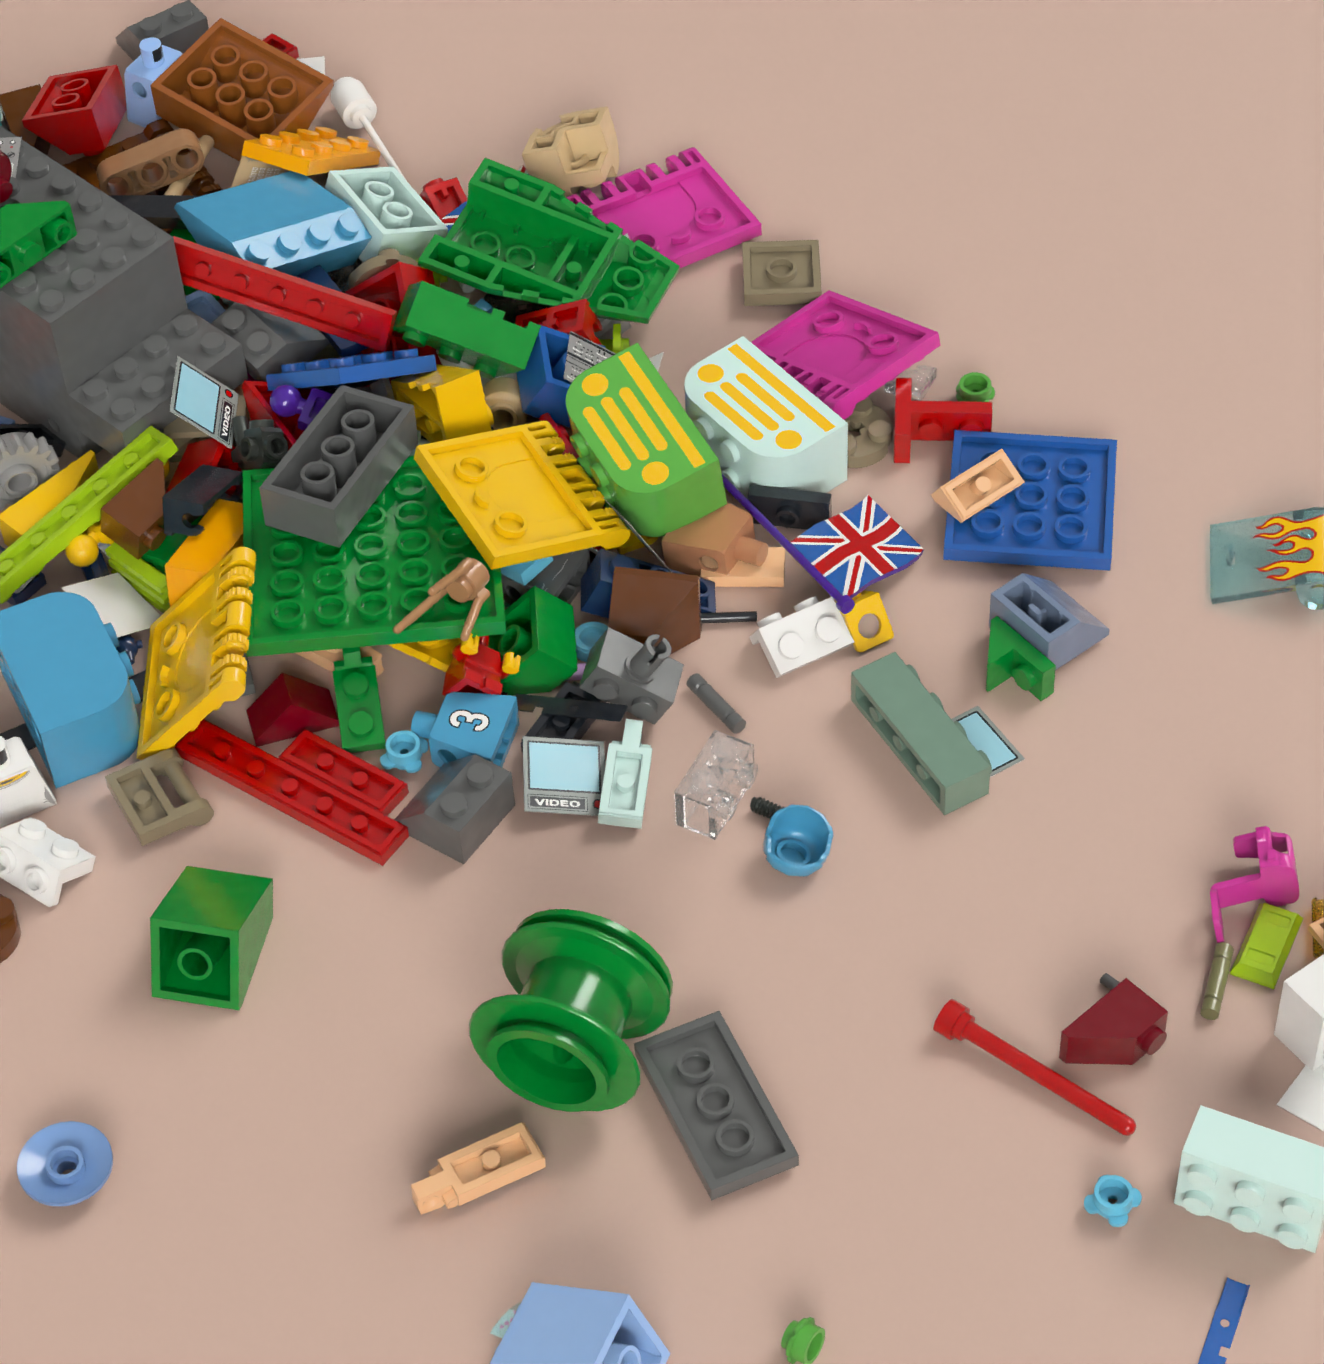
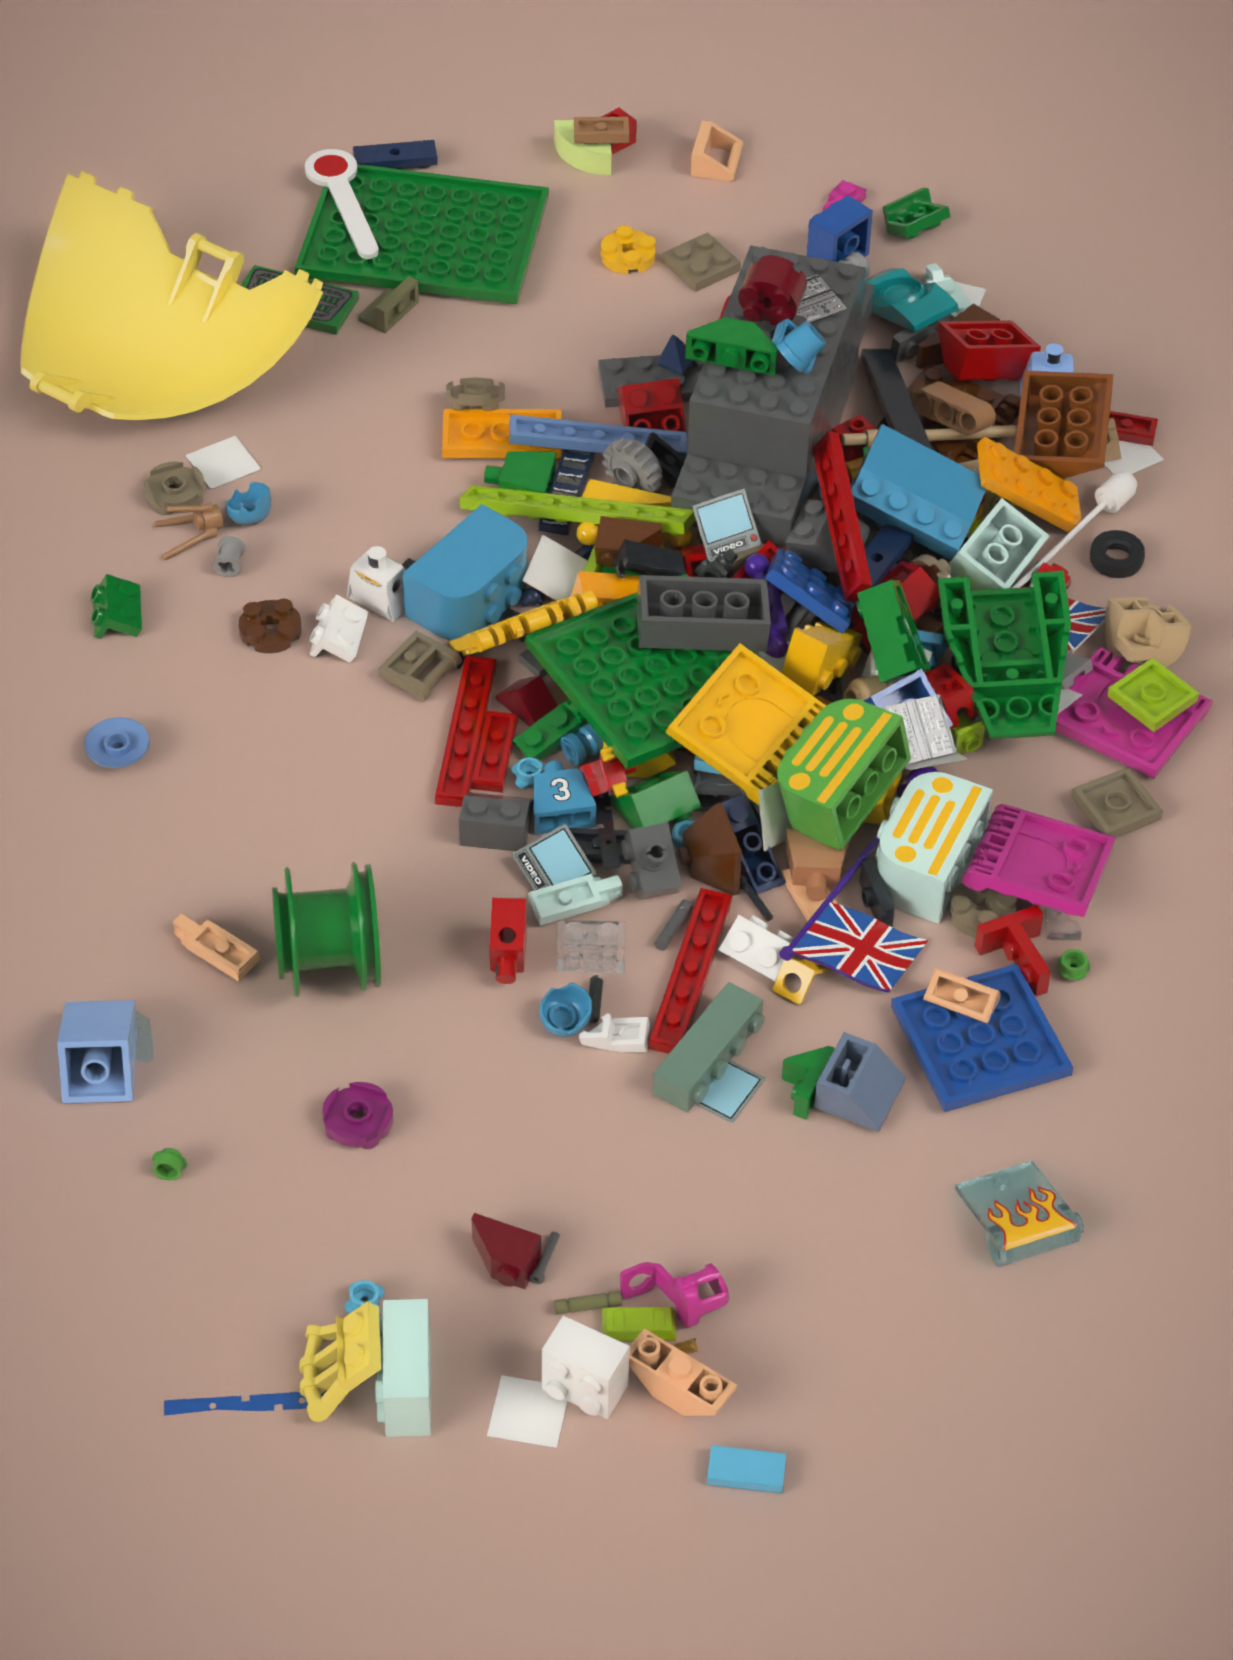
camera: 60 degrees right, 0 degrees up
(72, 180) = (799, 345): none -> dark azure piece
(174, 27) = (1104, 358): dark grey slope -> none
(209, 936) = (320, 735): green slope -> none
(399, 690) = (582, 744): none -> dark azure wheel
(435, 154) = (1117, 567): none -> black tyre
(462, 584) = (640, 719): medium nougat plant -> none
(663, 855) = (508, 938): none -> red torso
(667, 179) = (1153, 694): none -> lime plate
(716, 1105) = (328, 1049): dark grey plate -> none
(794, 714) = (690, 970): none -> red tile
(833, 1133) = (363, 1131): none -> magenta plate
(851, 808) = (619, 1034): none -> white slope
(957, 1023) = (464, 1158): red piece -> none
(1226, 1211) = (357, 1358): none -> light yellow plate

